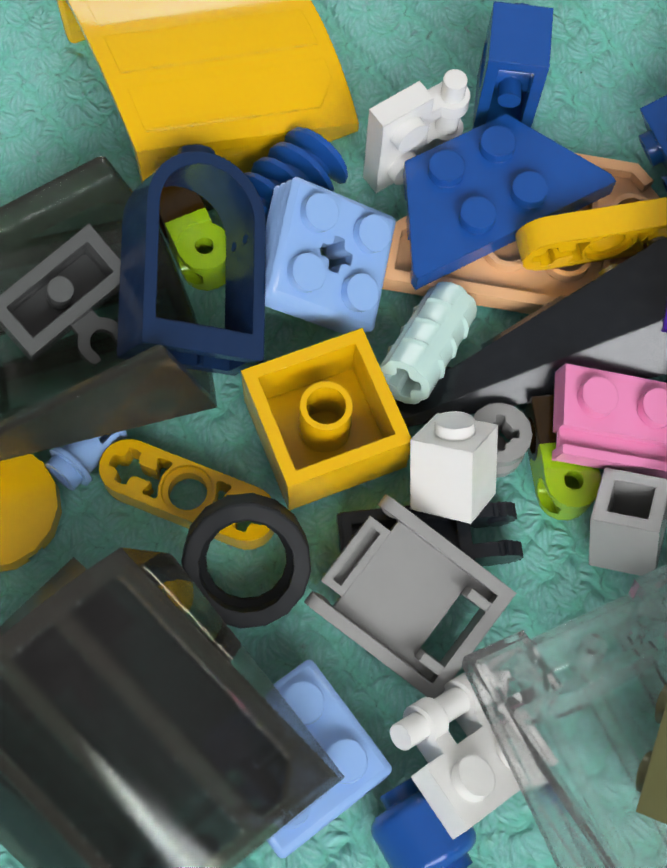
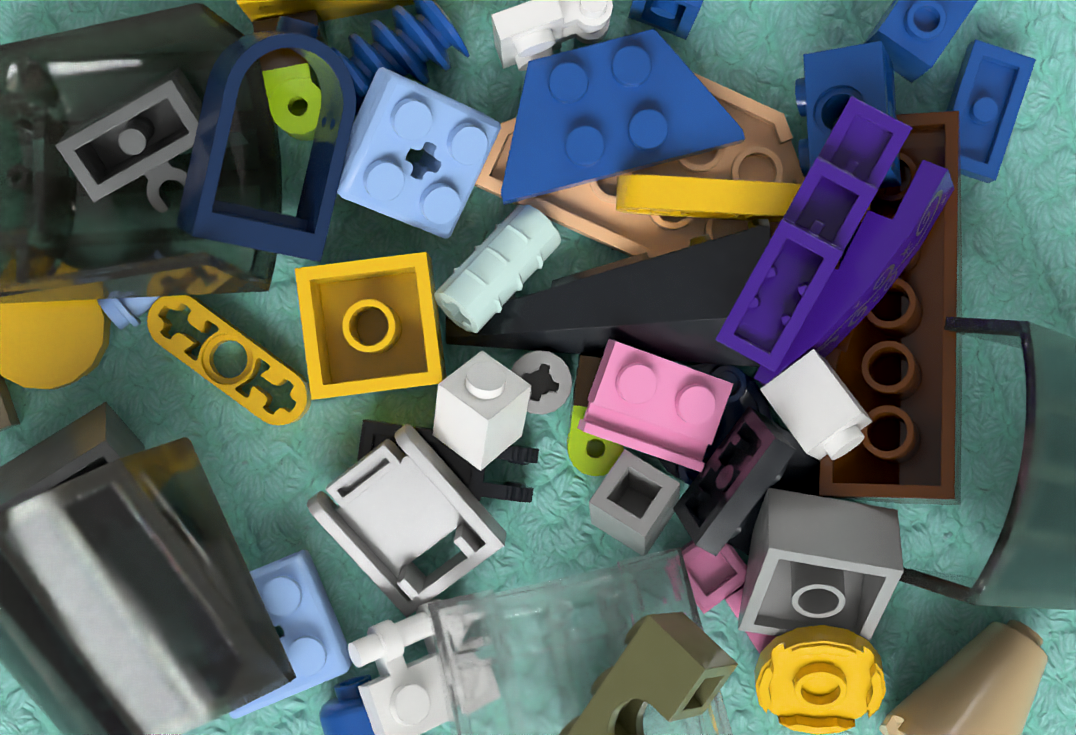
camera: 20 degrees right, 20 degrees up
(287, 591) = (244, 484): black tyre -> none

